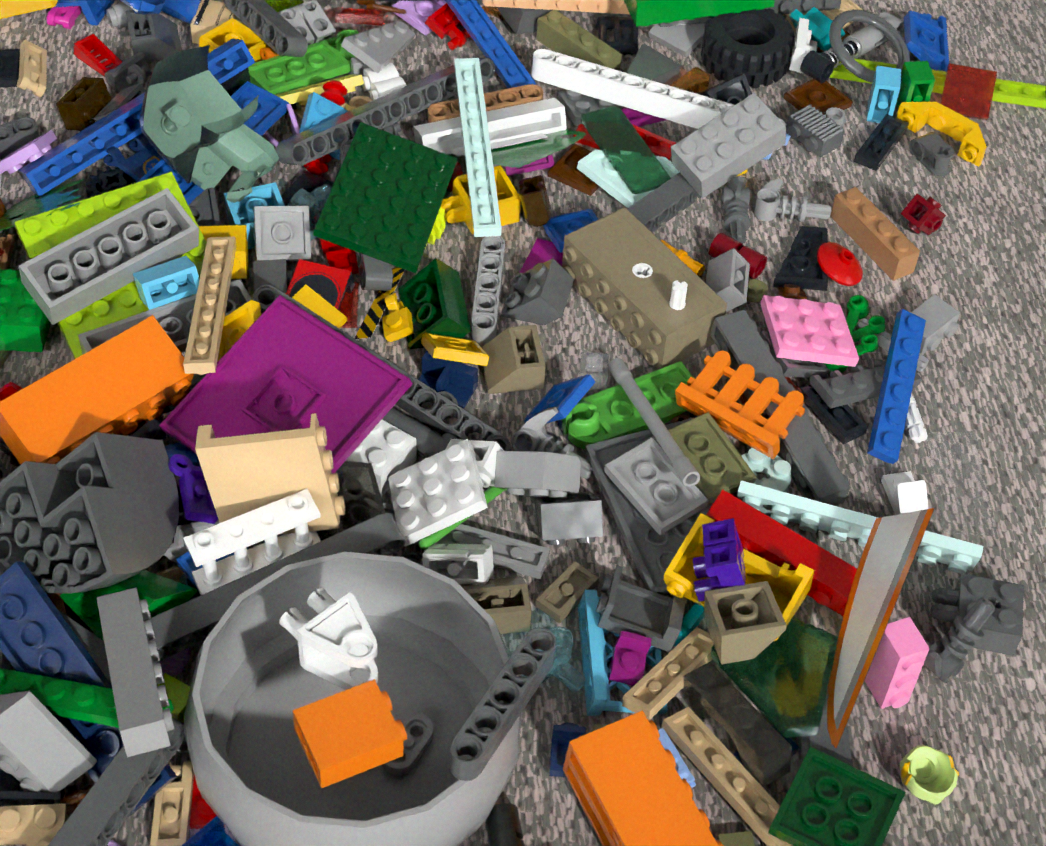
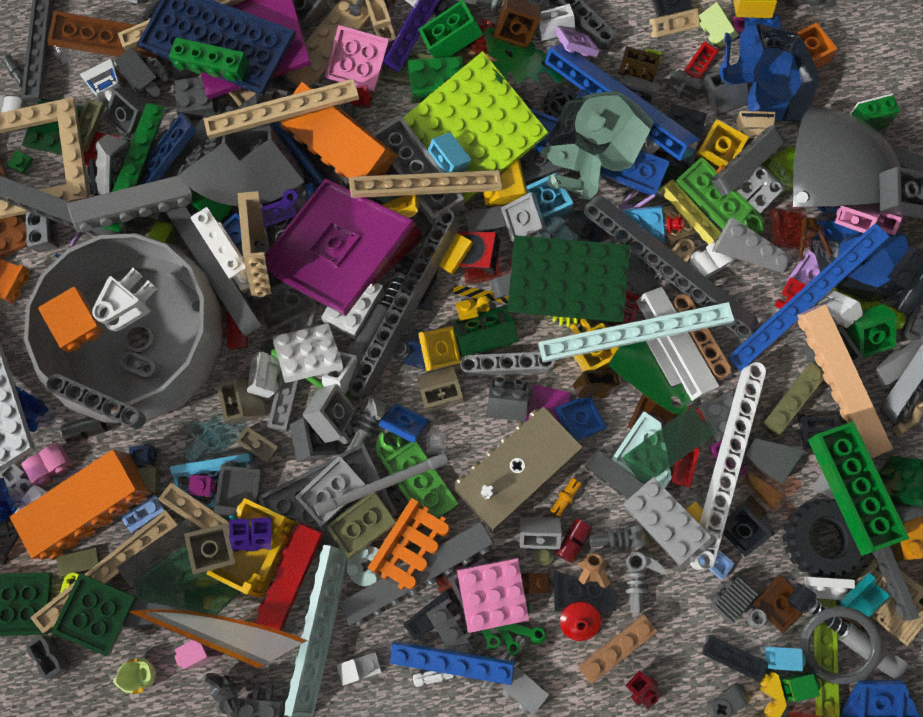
camera: 90 degrees right, 25 degrees up
(40, 429) = (281, 108): none -> tan plate
(56, 27) = (717, 24): none -> yellowish green brick
(108, 255) = (459, 114): light grey brick -> none
(776, 237) = (594, 570): none -> medium nougat rock

